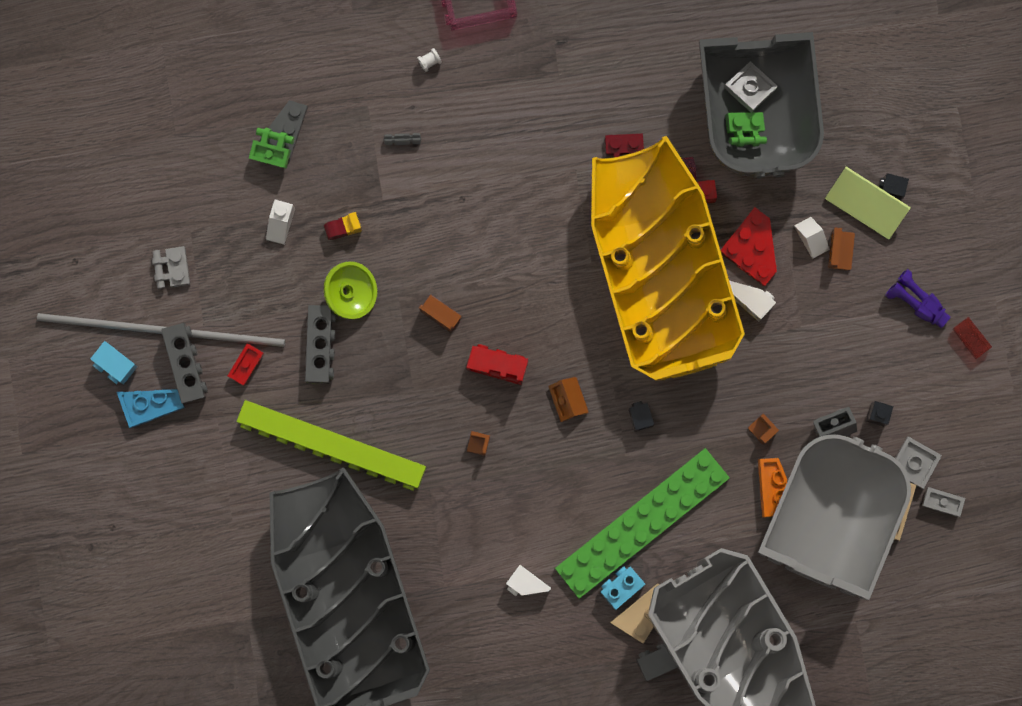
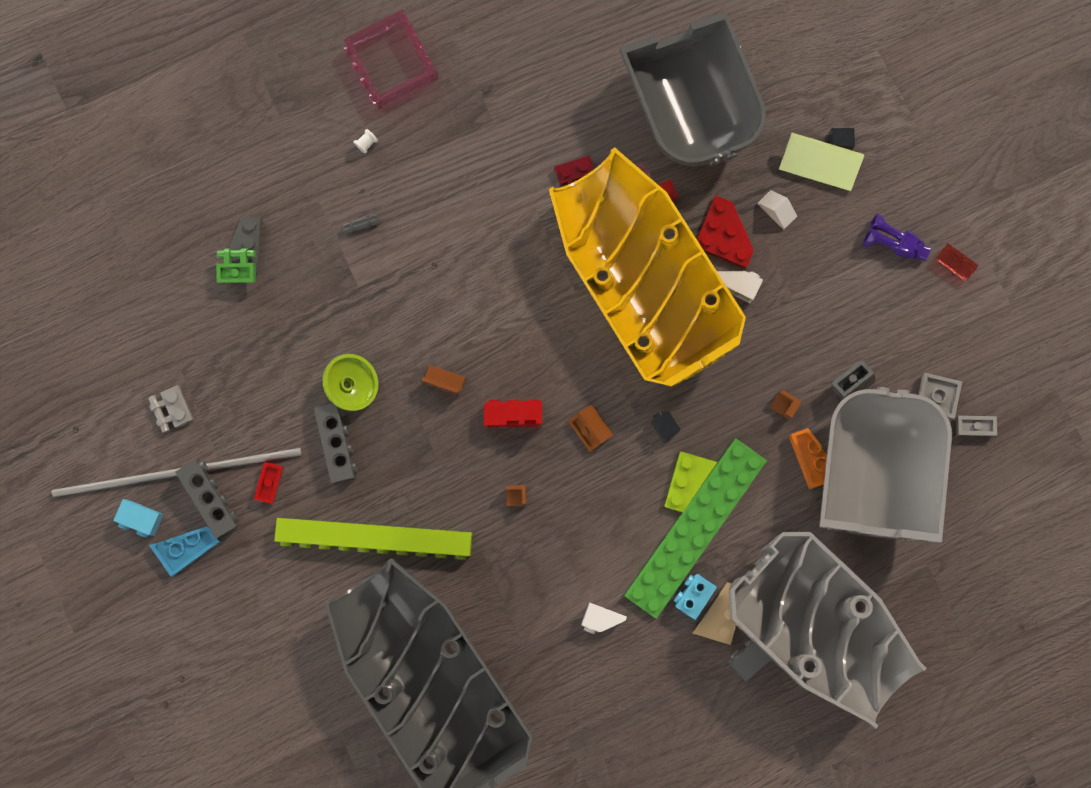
camera: 15 degrees left, 0 degrees up
(279, 221) = (264, 335): white slope -> none
(342, 227) = (326, 323): leg -> none
(647, 475) = (687, 479): none -> lime wing
(745, 123) = (686, 117): bright green plate -> none
(750, 87) = (679, 82): light grey plate -> none
(841, 249) = (808, 213): dark orange panel -> none
(879, 413) = (891, 358): black brick -> none

